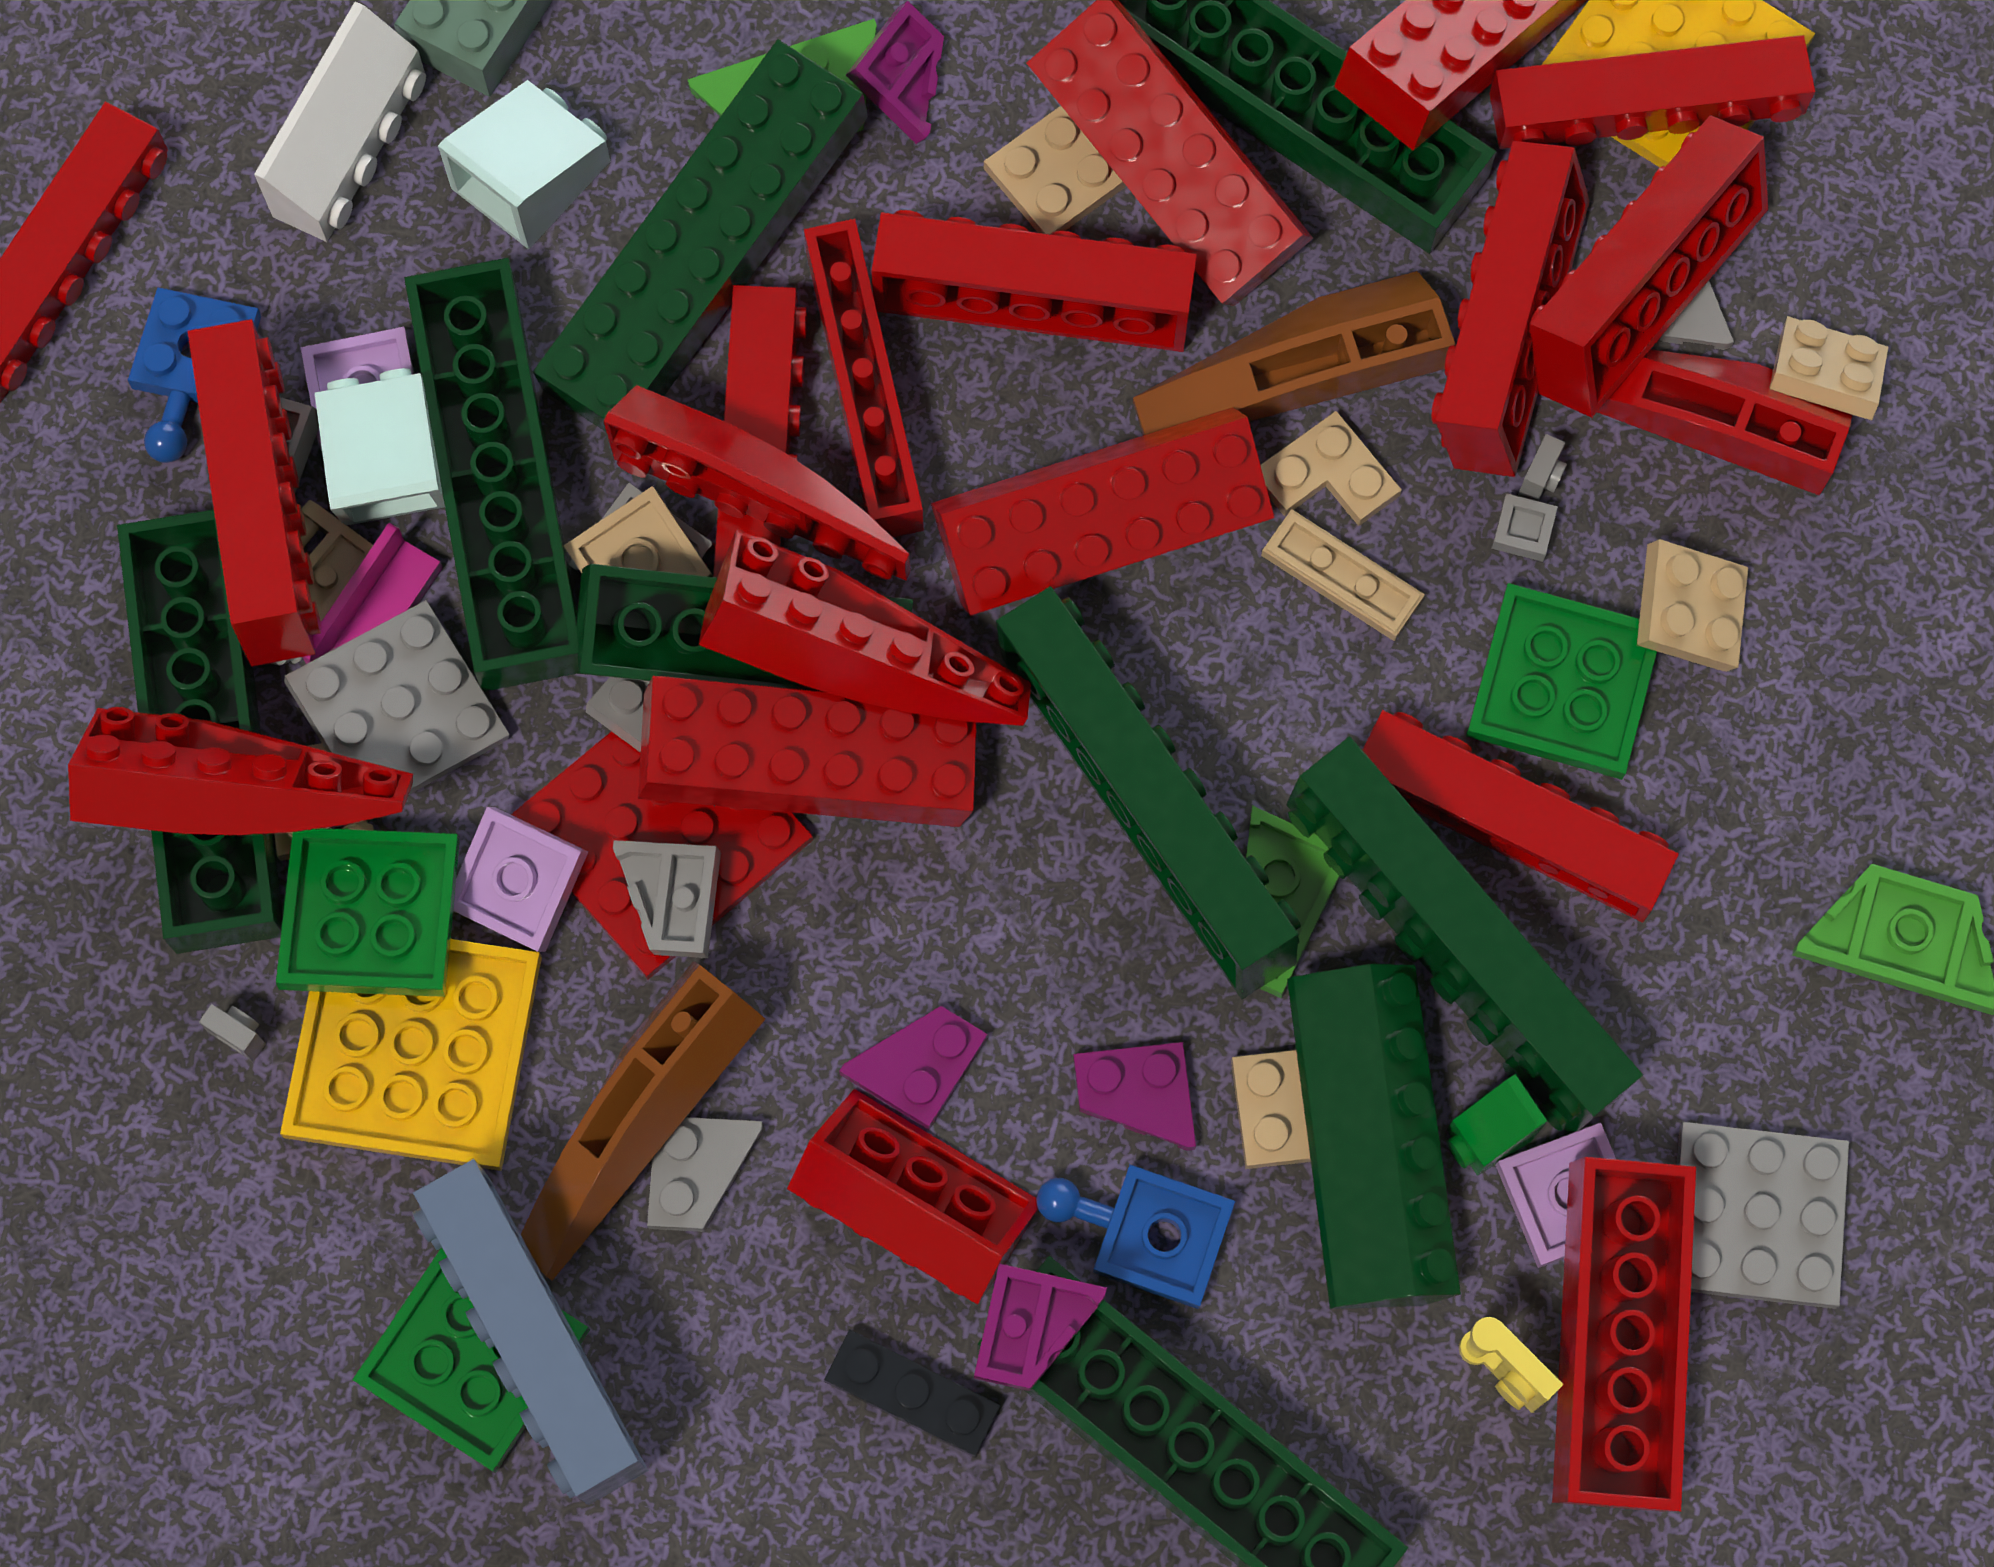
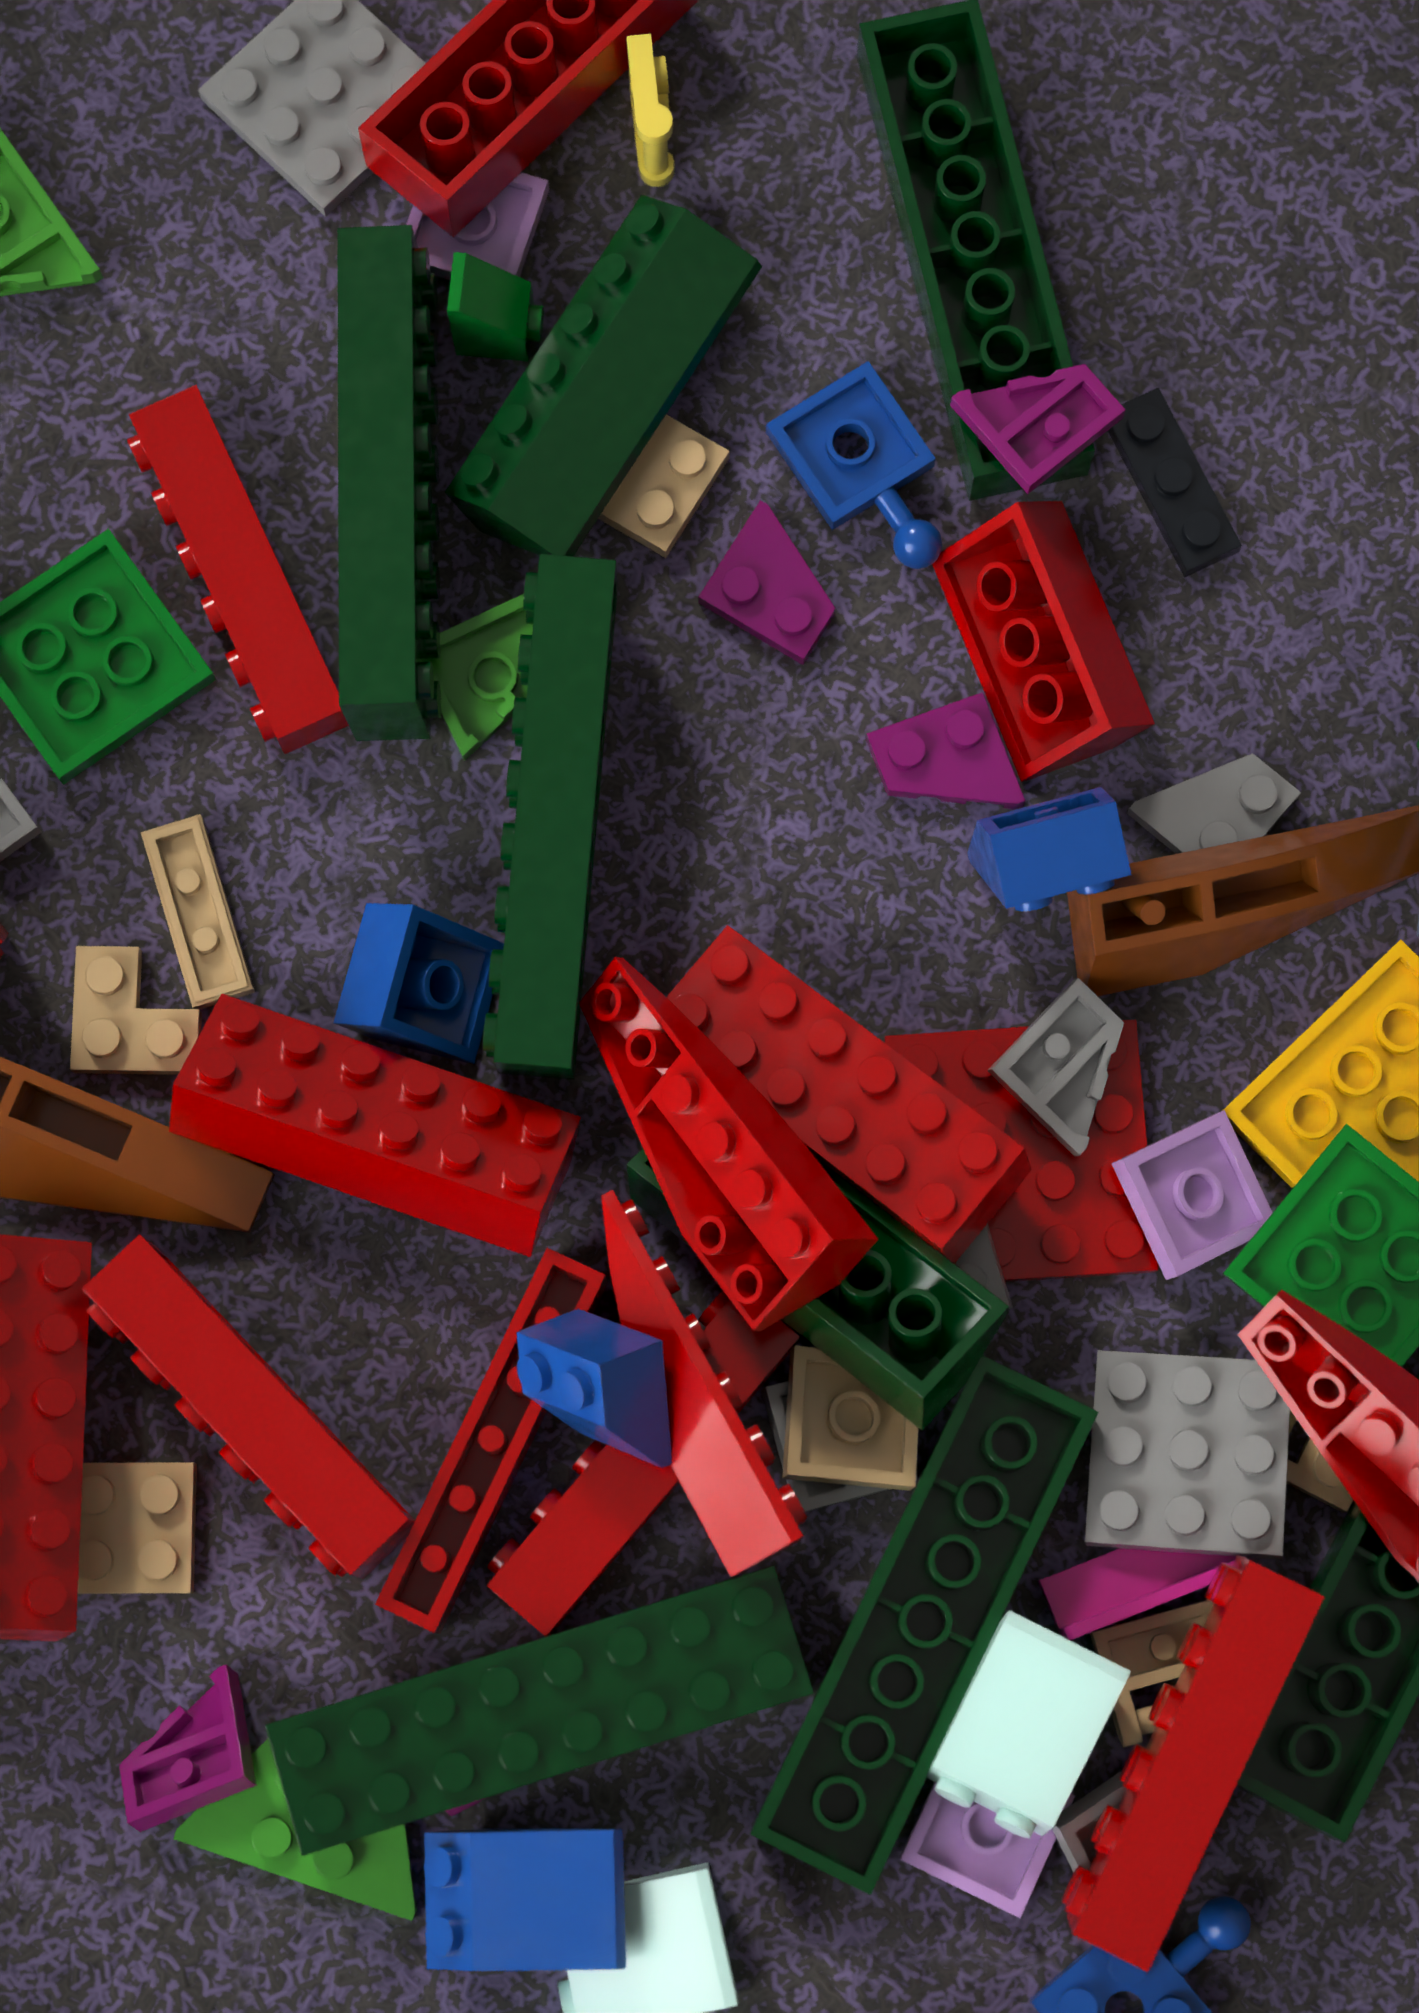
camera: 140 degrees left, 5 degrees up
(623, 122) = (525, 1899): none -> blue slope
(786, 1010) = (1051, 849): none -> blue slope
(817, 433) = (599, 1381): none -> blue slope
(1157, 628) = (418, 982): none -> blue slope

